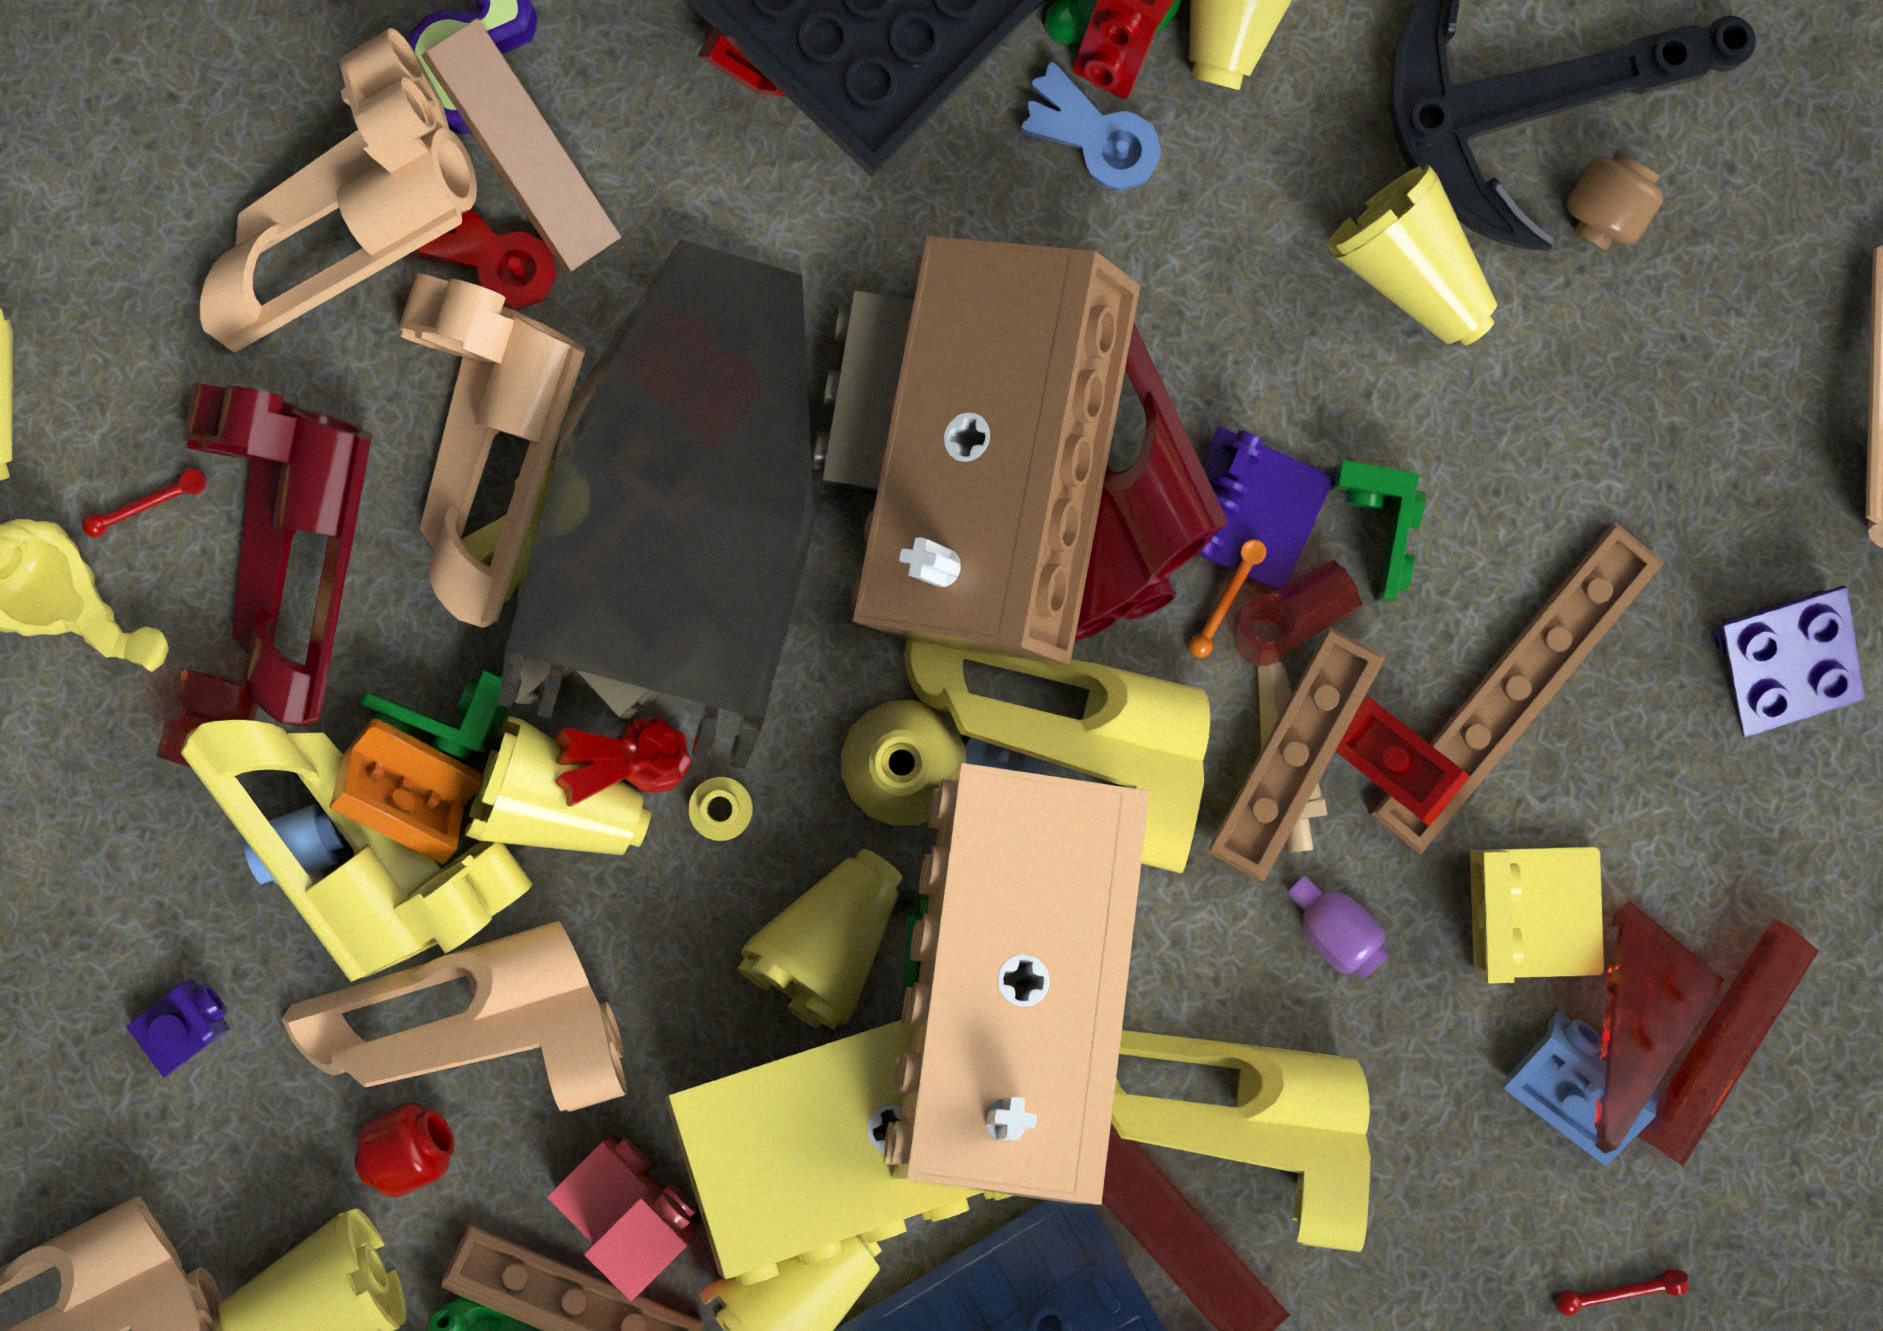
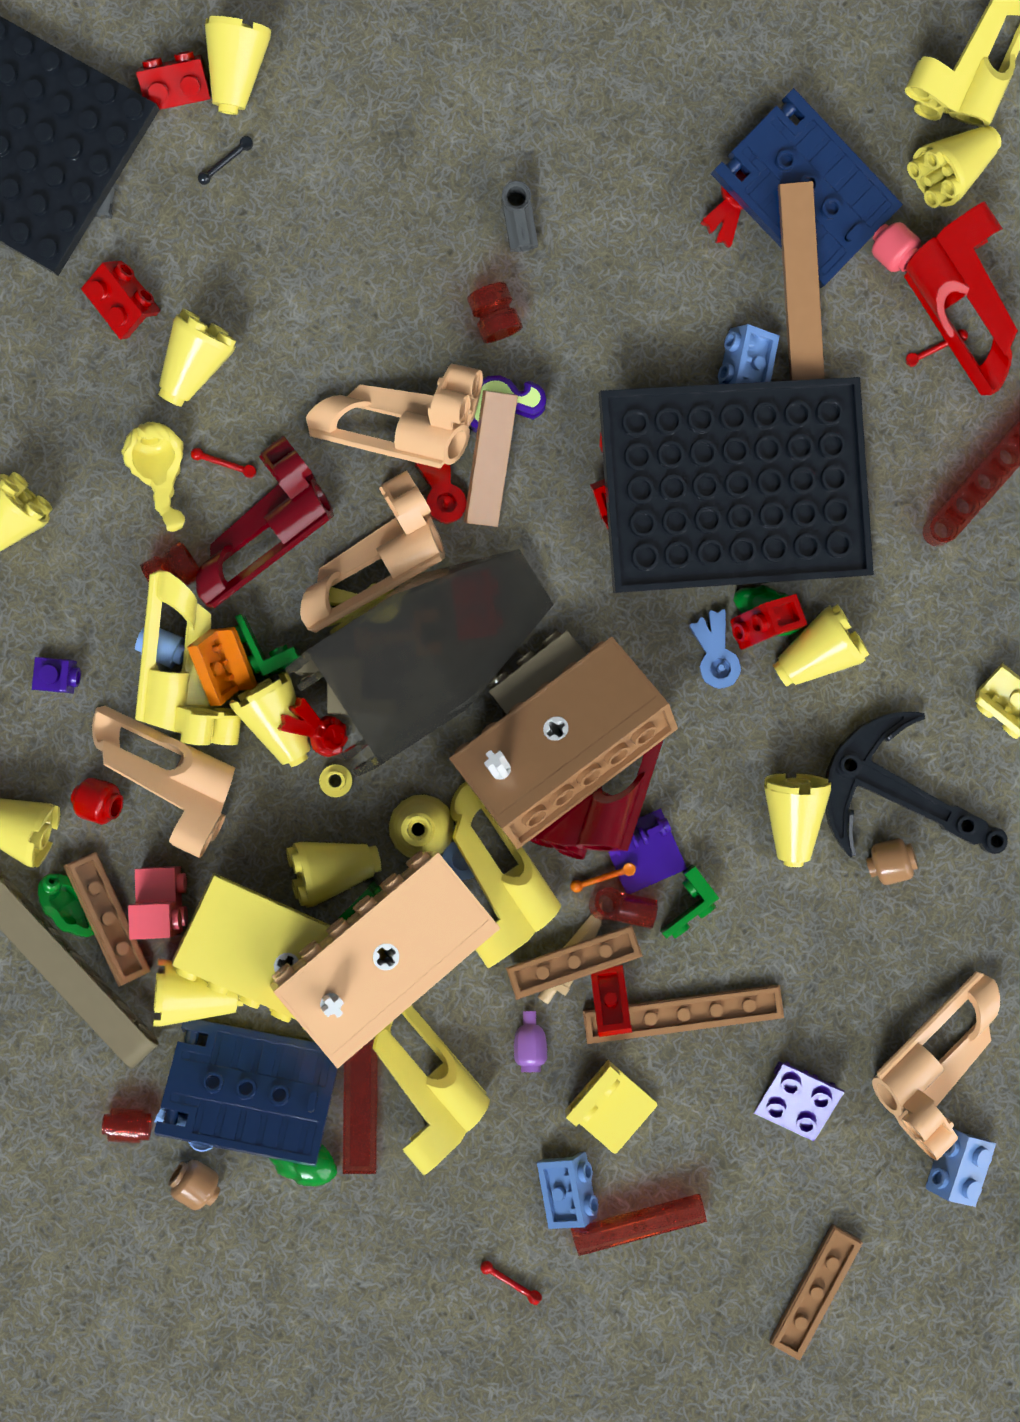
camera: 40 degrees right, 0 degrees up
(1653, 1007) = (623, 1184): clear red wing -> none

